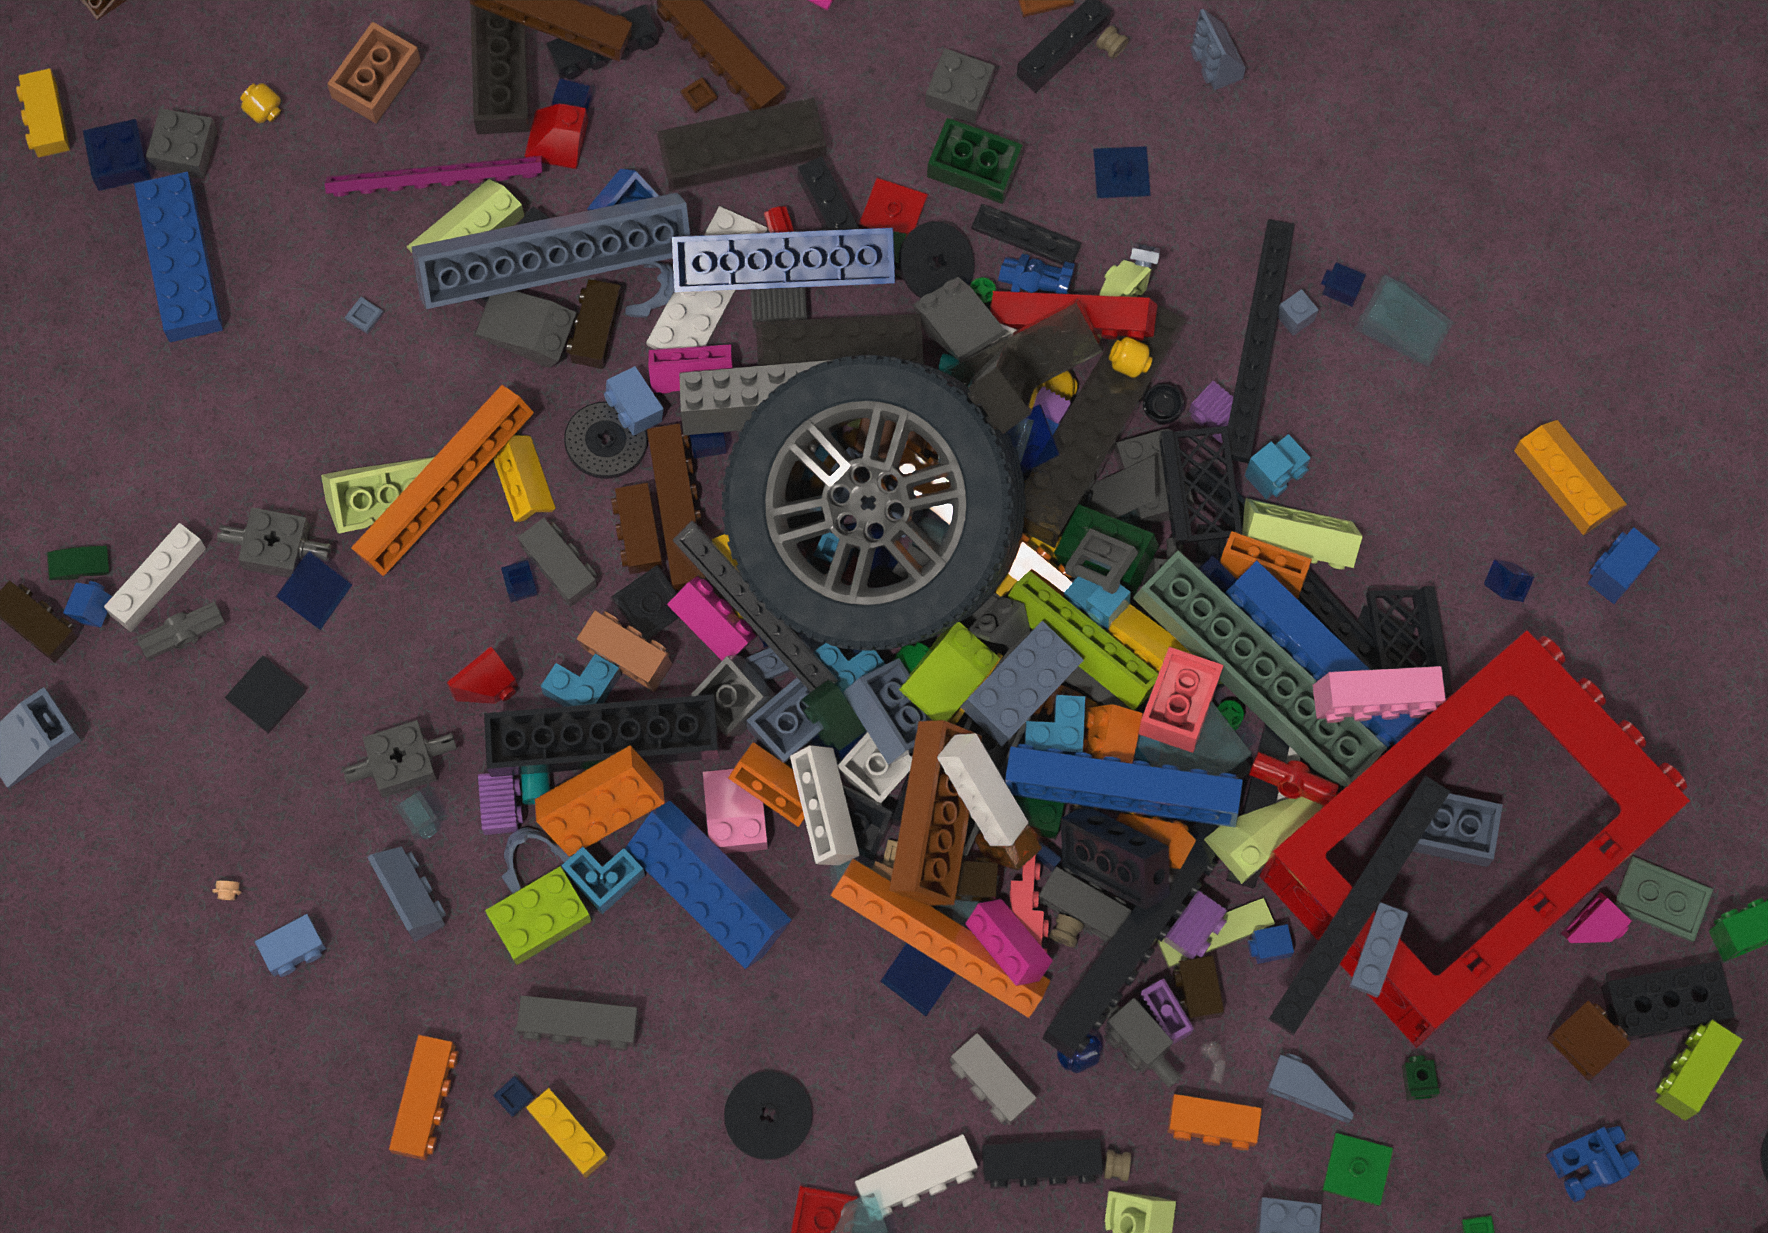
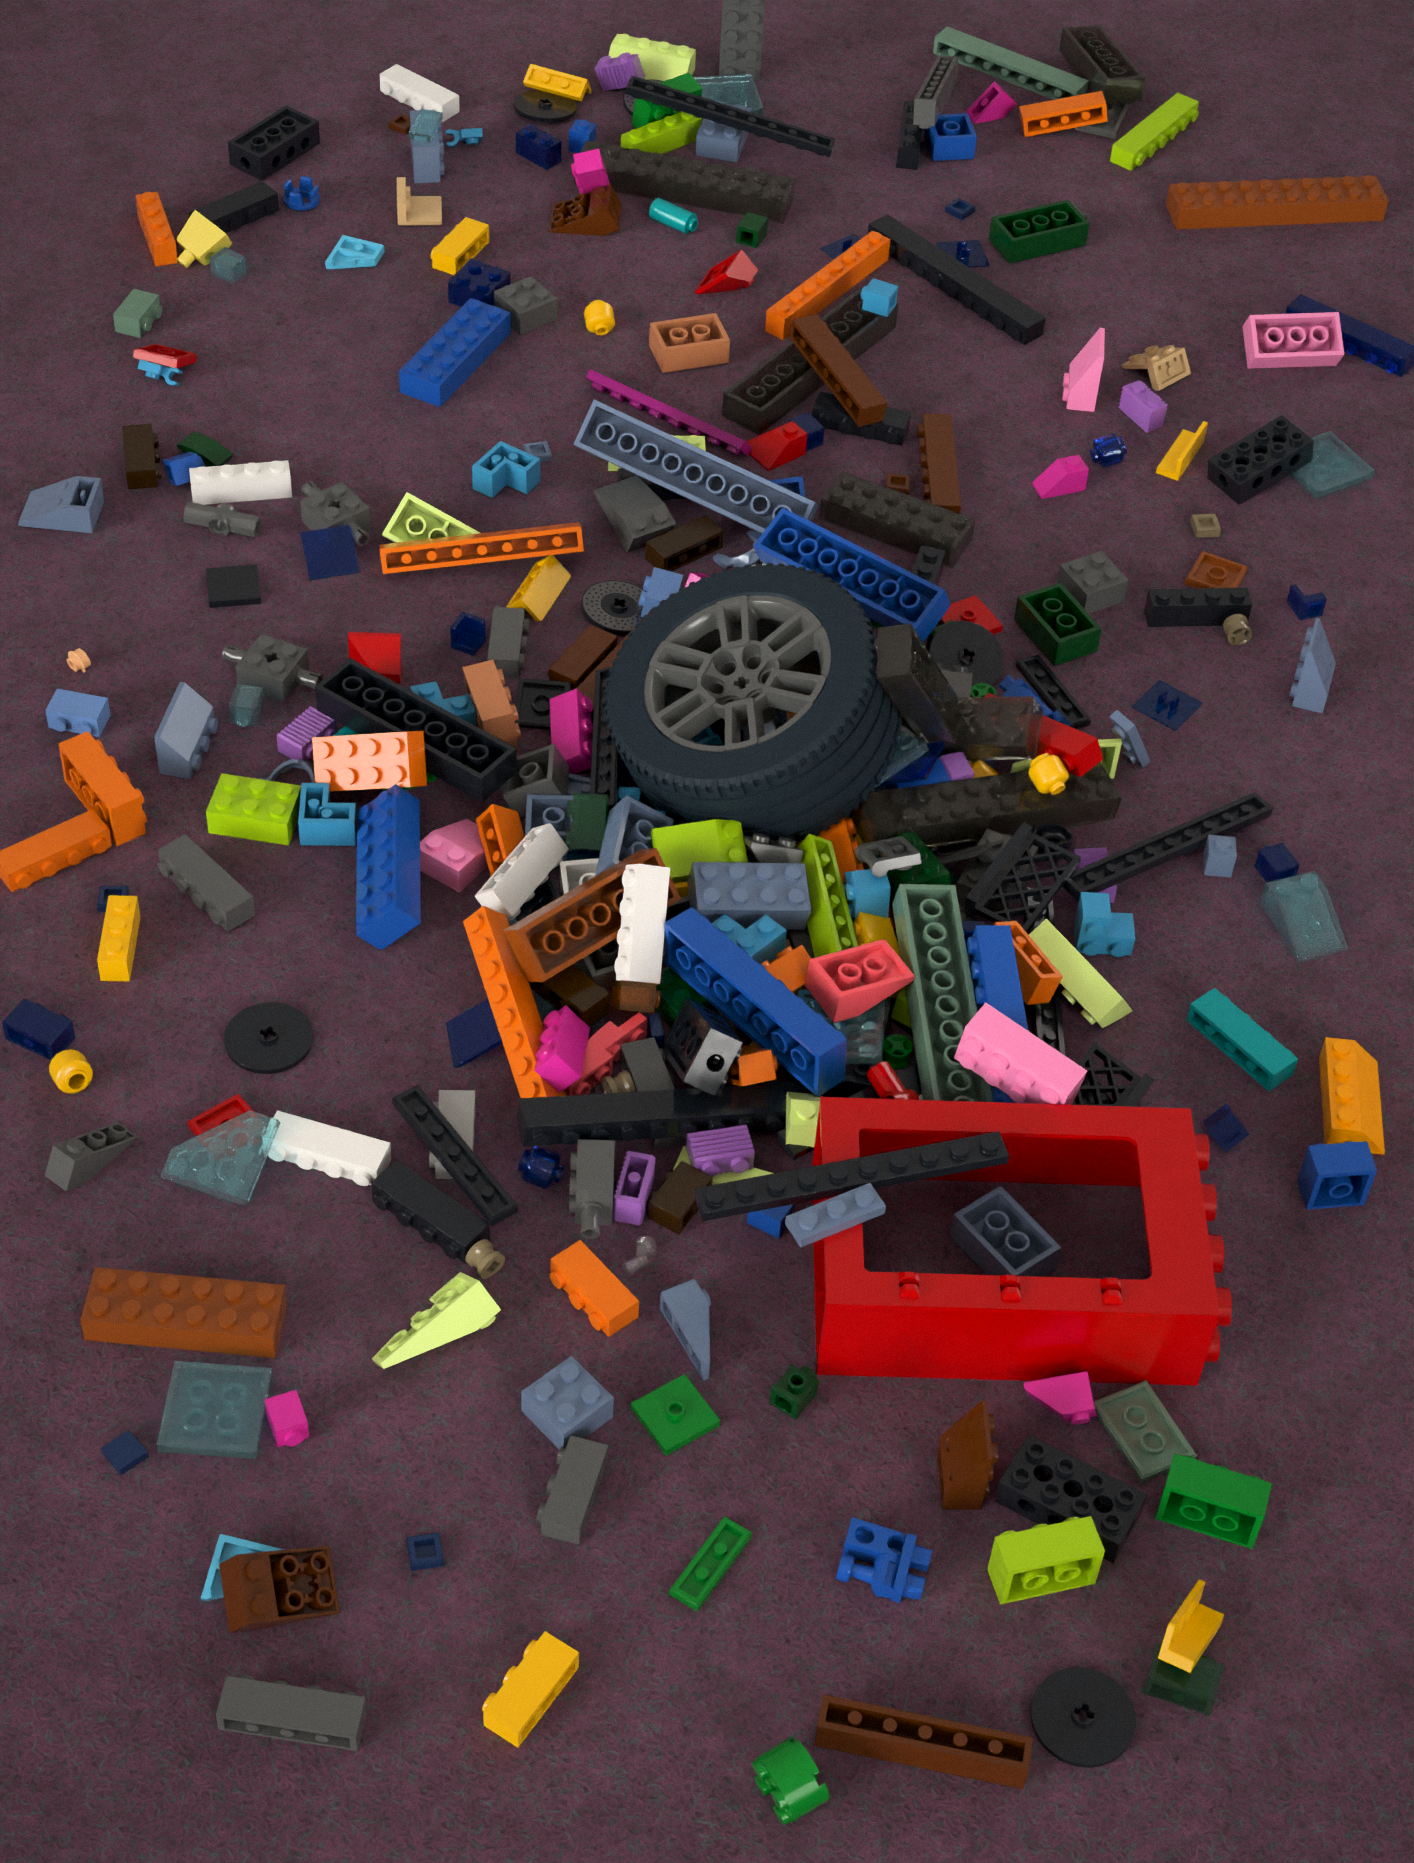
camera: 40 degrees right, 25 degrees down
(366, 362) = (503, 467): none -> dark azure brick
(404, 1007) = (103, 787): none -> orange brick
(1021, 1104) = (455, 1155): none -> black tile
(1455, 485) = (1242, 1039): none -> teal brick

